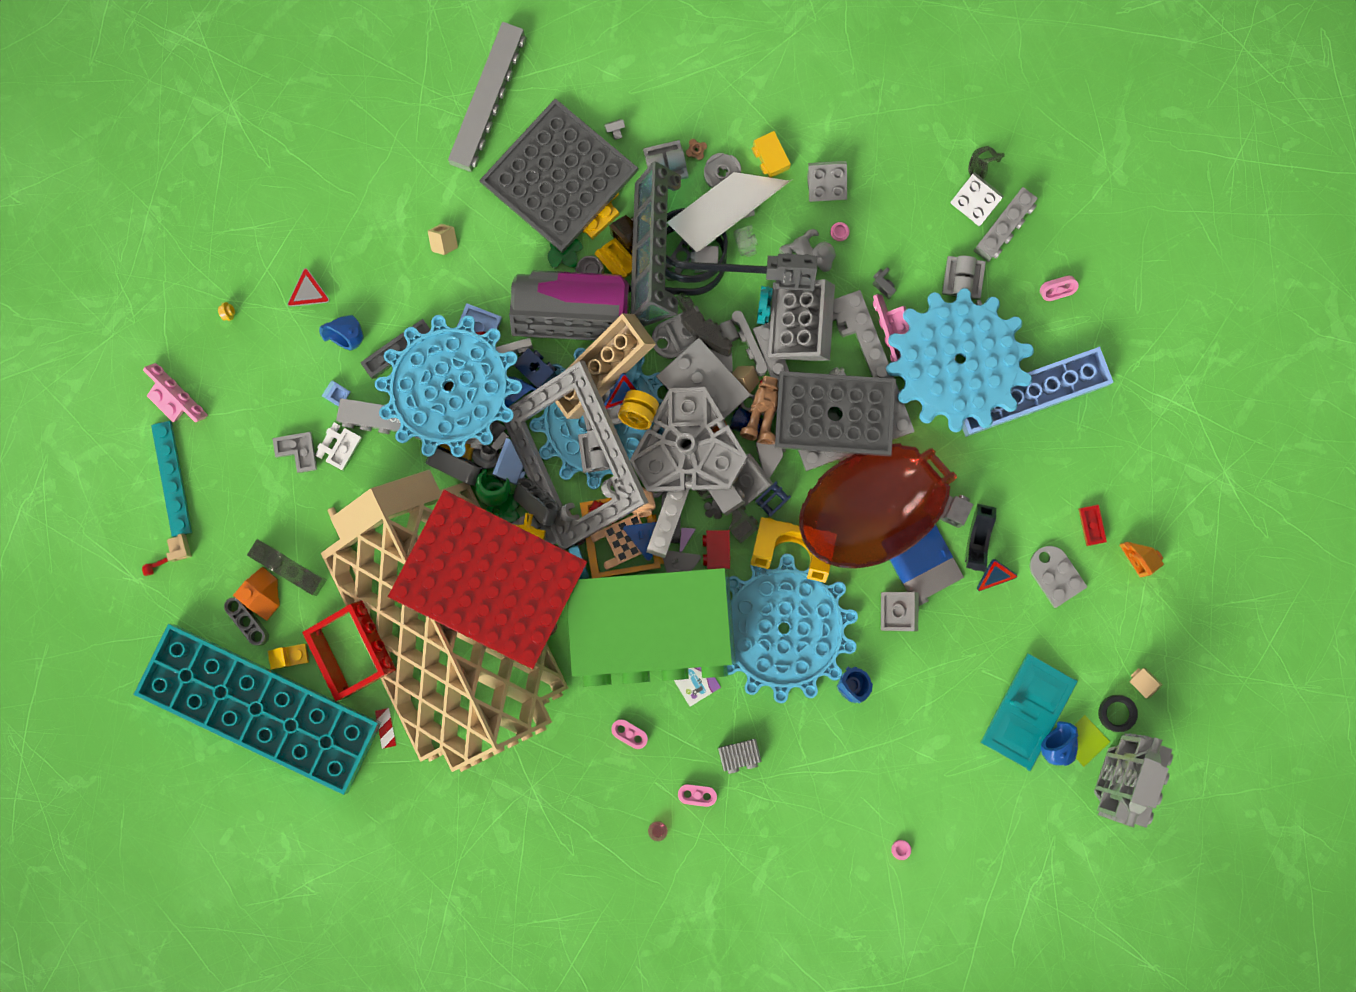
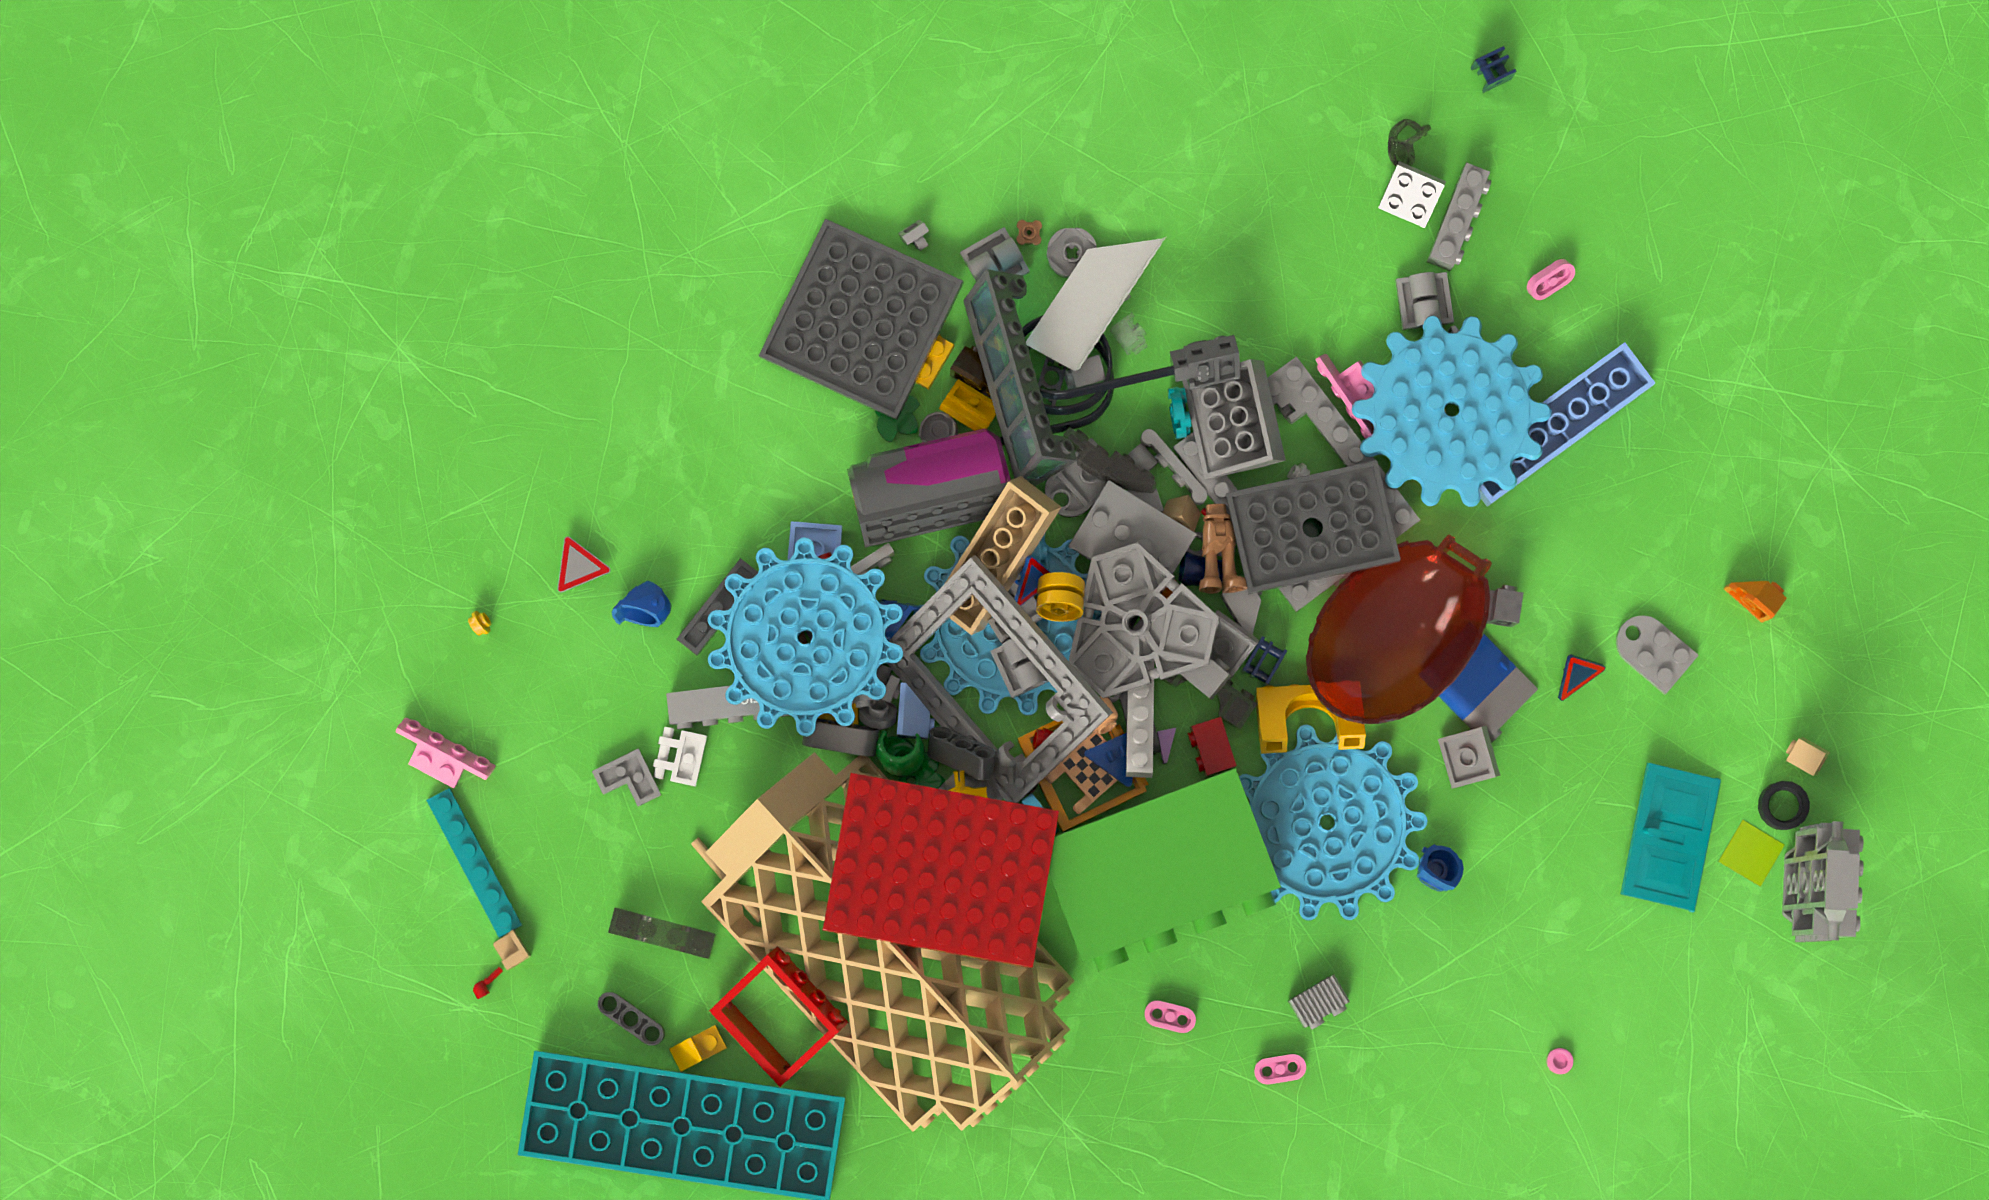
camera: 30 degrees left, 0 degrees up
(260, 593) = (638, 977): orange slope -> none
(335, 392) = (654, 688): light blue slope -> none
(386, 729) = (853, 1104): sticker -> none
(442, 239) = (734, 446): tan panel -> none
(487, 96) = (735, 242): light grey brick -> none
(527, 366) = (920, 591): dark blue brick -> none
(657, 831) = (1242, 1130): plate -> none
(680, 561) = (1169, 777): light grey piece -> none
(696, 687) = (1238, 930): sticker -> none
(713, 509) = (1190, 696): dark grey plant -> none
(771, 155) = (1128, 212): yellow brick -> none
(824, 251) = (1233, 322): light grey animal -> none
(827, 181) = (1212, 226): light grey plate -> none
(839, 231) = (1247, 286): bright pink plate -> none
(886, 287) = (1328, 342): dark grey bracket -> none
(979, 537) = (1543, 632): black arch -> none
(1061, 122) = (1496, 64): none -> dark blue piece
(1061, 744) = (1723, 866): blue helmet -> none
(1092, 525) = (1682, 574): red plate -> none

